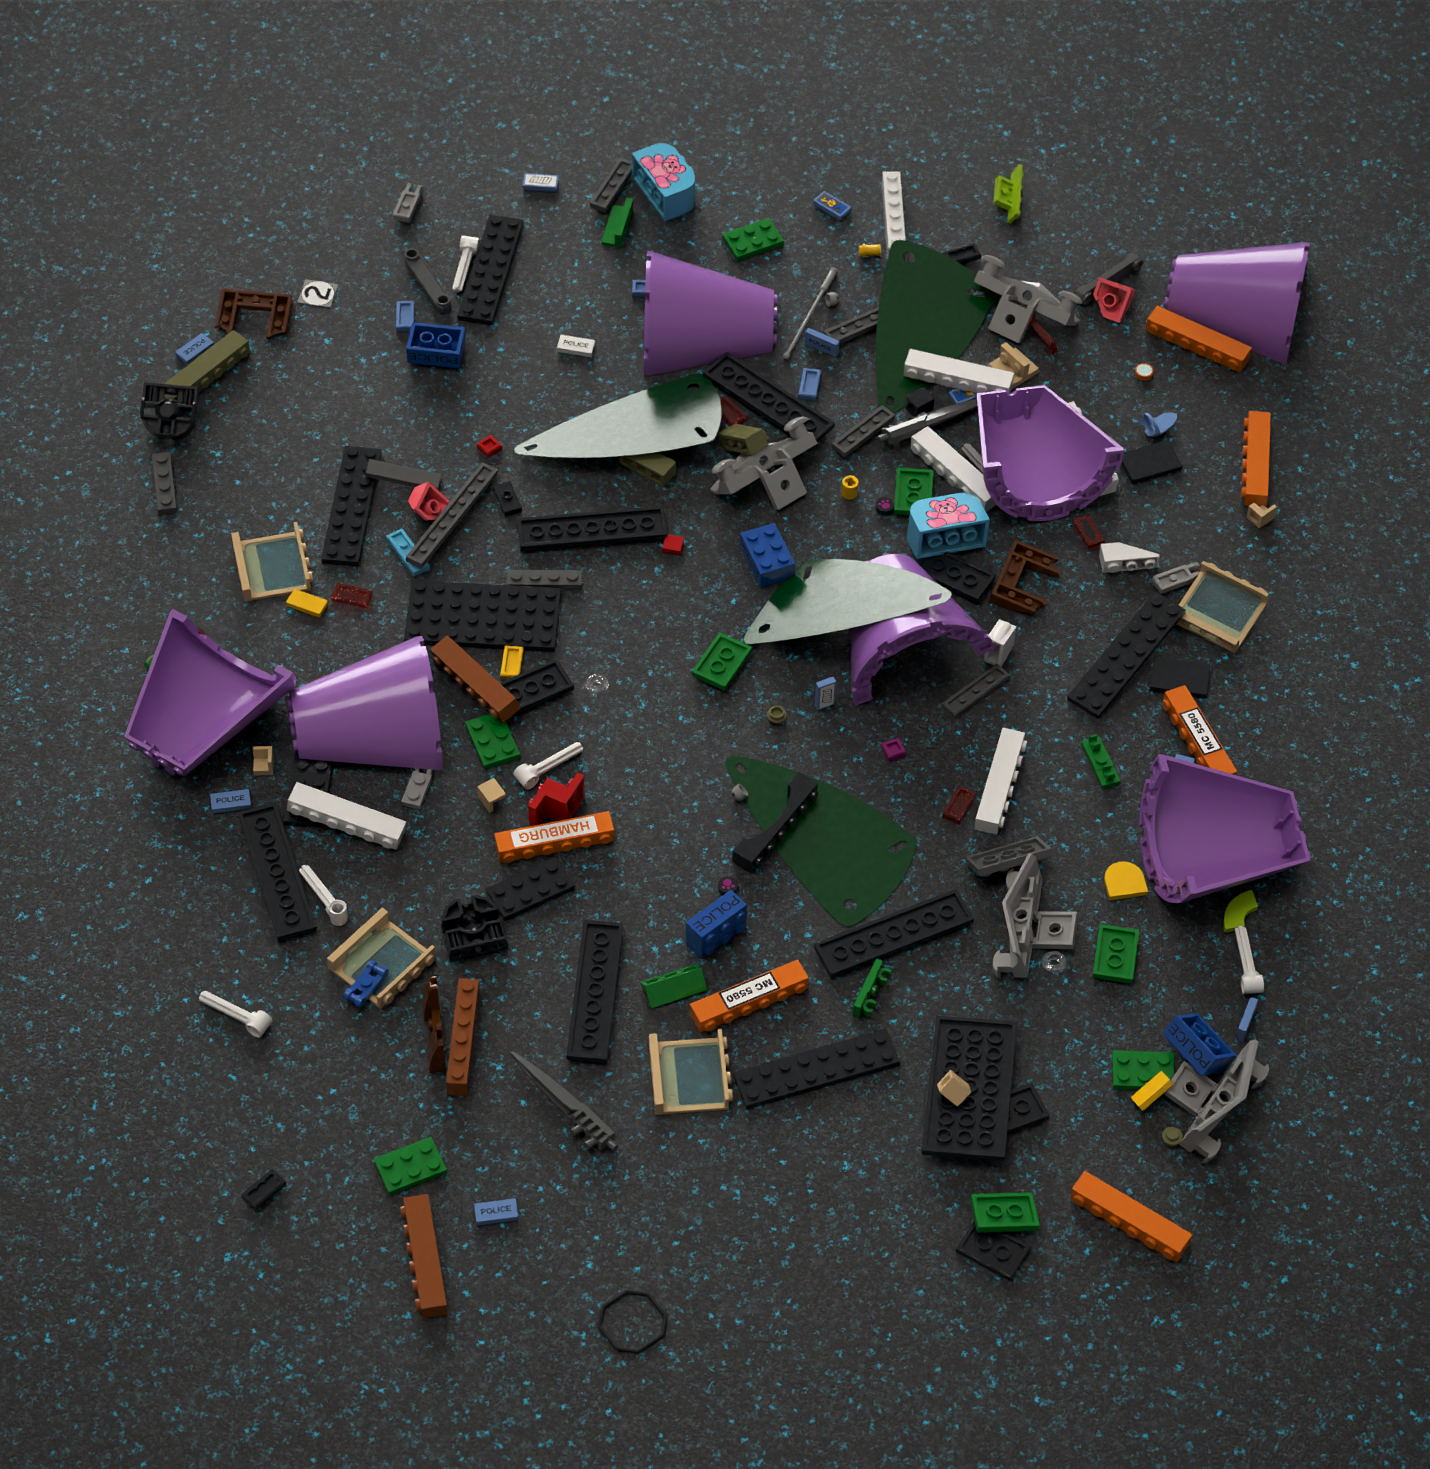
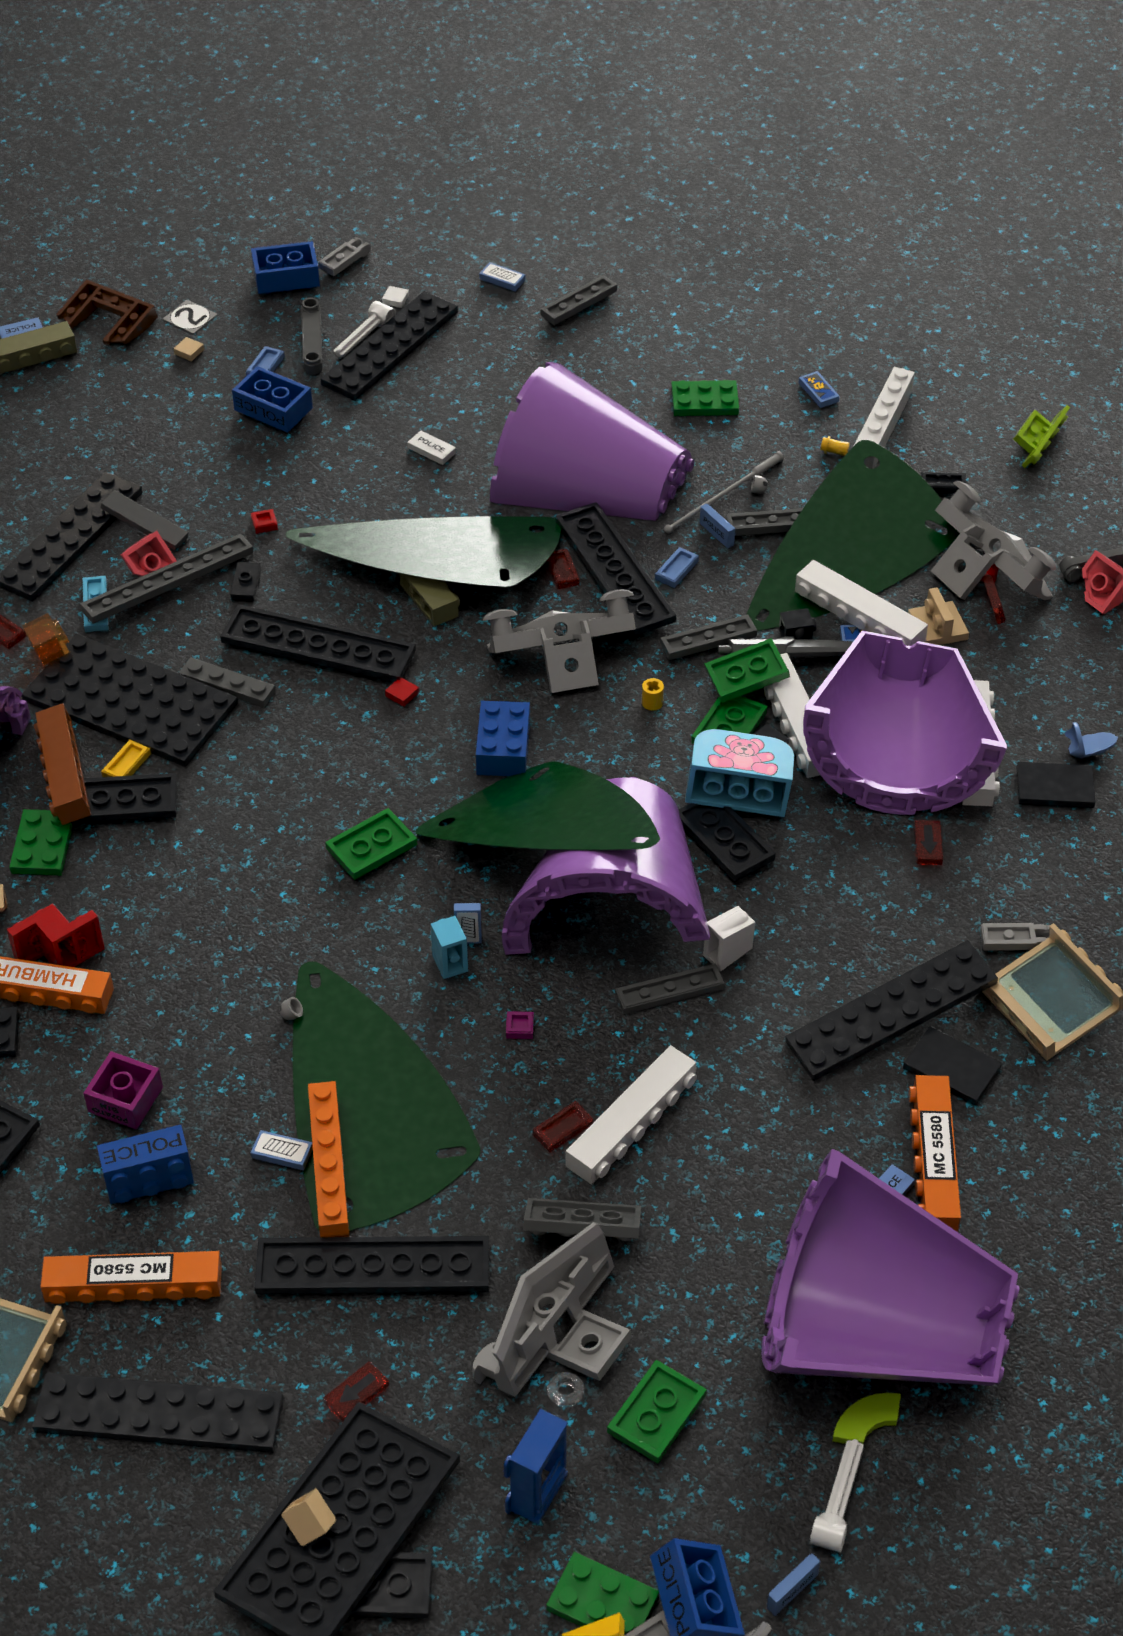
camera: 25 degrees right, 5 degrees down
(337, 322) = (188, 349): none -> tan tile
(372, 228) = (285, 267): none -> blue brick
(397, 591) = (47, 638): none -> clear orange brick
(469, 226) = (395, 297): none -> white tile
(529, 775) = (50, 892): white axle -> none
(597, 678) = (206, 827): clear piece -> none
(618, 224) = (562, 339): green panel -> none
(665, 179) = (638, 308): medium azure brick -> none
(668, 883) = (123, 1090): none -> magenta brick
(674, 985) = (48, 1226): green panel -> none
(726, 884) = (201, 1122): black tile -> none
(743, 439) = (551, 598): olive brick -> none
(751, 851) = (257, 1088): black arch -> none
(776, 715) = (398, 930): olive plate -> none
(791, 884) = (282, 1150): none -> tile
(823, 713) = (449, 947): none -> medium azure brick
(828, 879) = (328, 1160): none -> orange brick
(870, 988) = (292, 1328): green plate -> none
(884, 506) = (684, 729): black tile -> none
(909, 448) = (747, 670): none -> green plate
(929, 1008) = (359, 1387): none -> clear red tile
(1022, 557) = (820, 841): reddish brown wedge -> none
(1074, 1007) = (539, 1449): none -> blue piece
(1100, 762) = (783, 1138): green plate -> none
(1123, 557) = (956, 888): white slope -> none
(1124, 881) = (727, 1312): yellow tile -> none
(1144, 372) = (1103, 677): tile -> none

